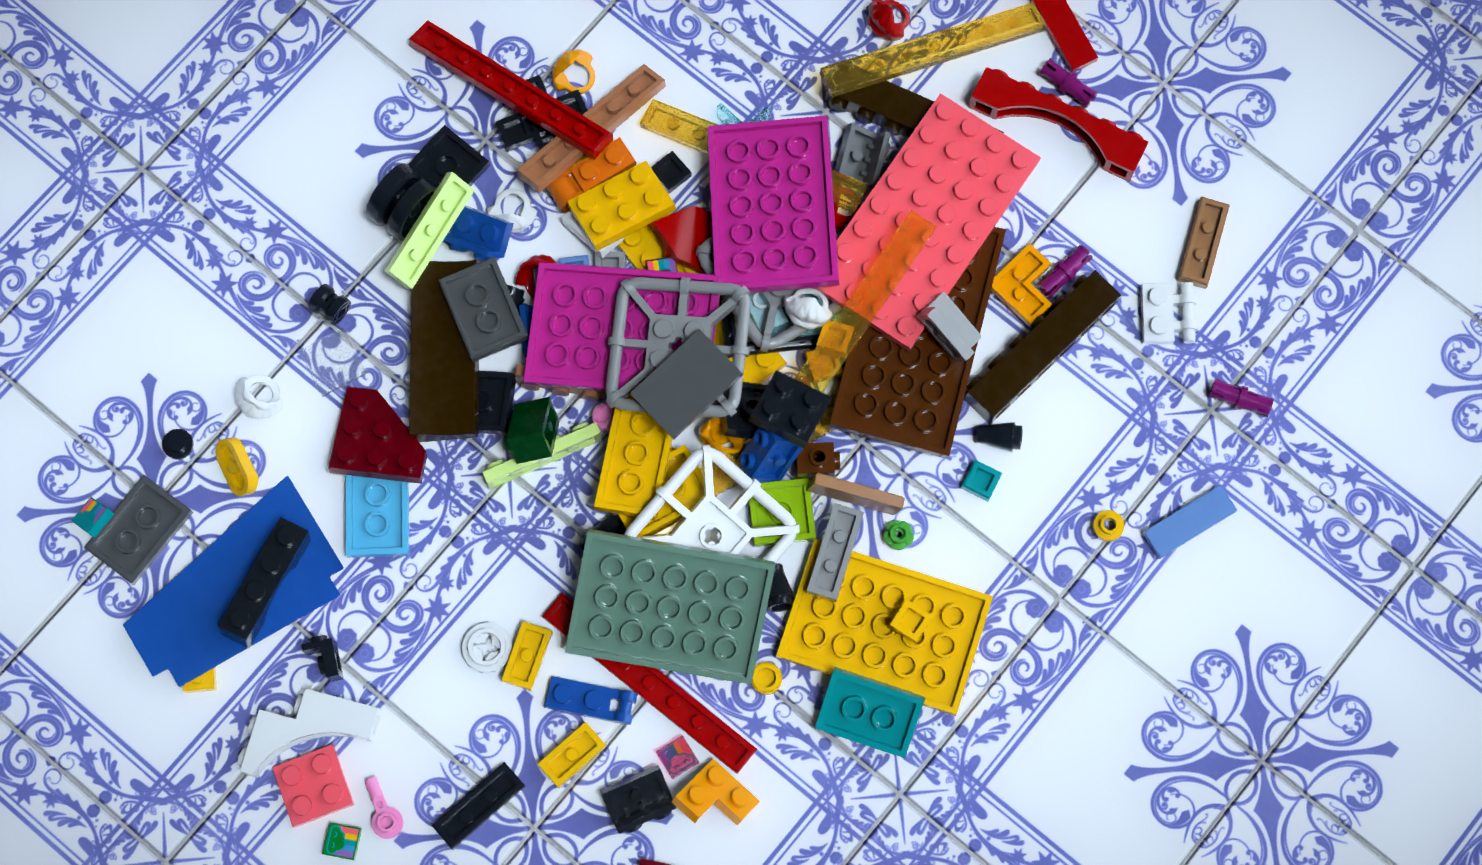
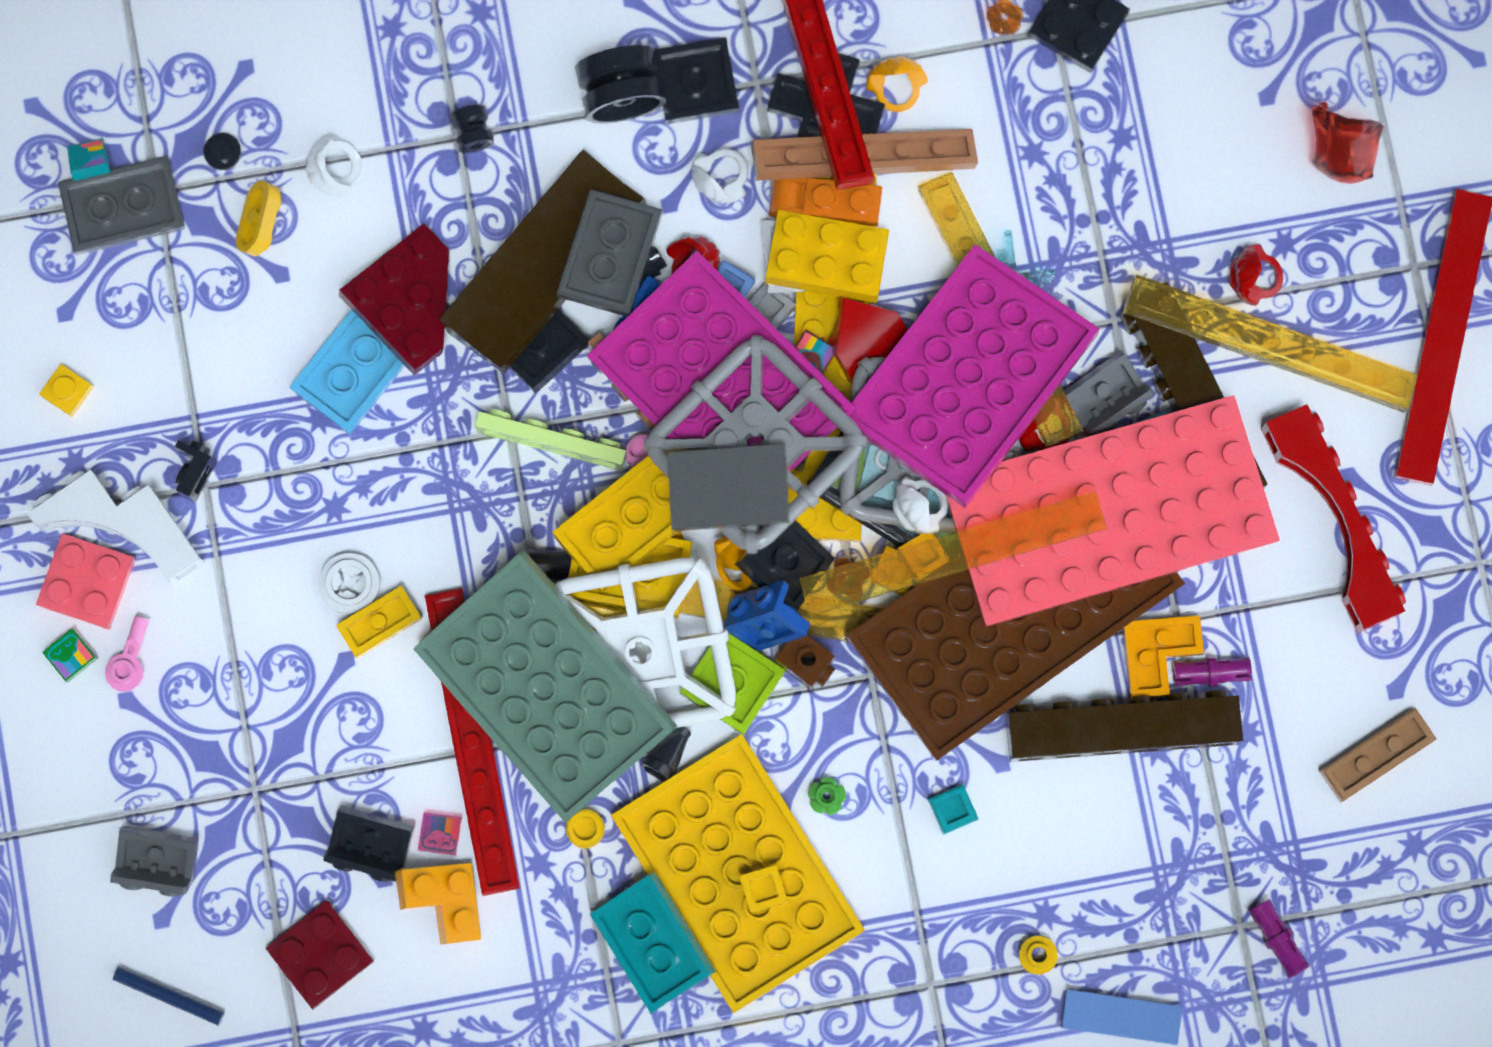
camera: 40 degrees right, 5 degrees up
(182, 620) = (167, 339): blue sticker -> none
(253, 599) = (177, 356): black arch -> none
(332, 362) = (430, 187): clear piece -> none
(429, 230) = (620, 133): yellowish green plate -> none
(478, 806) = (220, 726): black tile -> none
(480, 233) = (668, 173): blue bracket -> none
(532, 430) = (558, 410): dark green brick -> none
(572, 755) = (343, 750): yellow plate -> none
(590, 700) = (402, 712): blue plate -> none
(671, 172) = (907, 260): black plate -> none
(790, 409) = (814, 591): black plate -> none
(835, 552) = (747, 763): light grey plate -> none
(855, 494) = (816, 723): medium nougat tile -> none
(950, 327) = (1042, 636): light grey panel -> none
(1002, 435) = (1009, 783): black cone -> none
(1068, 83) = (1381, 485): magenta pin -> none
(1158, 313) = (1270, 788): white plate -> none

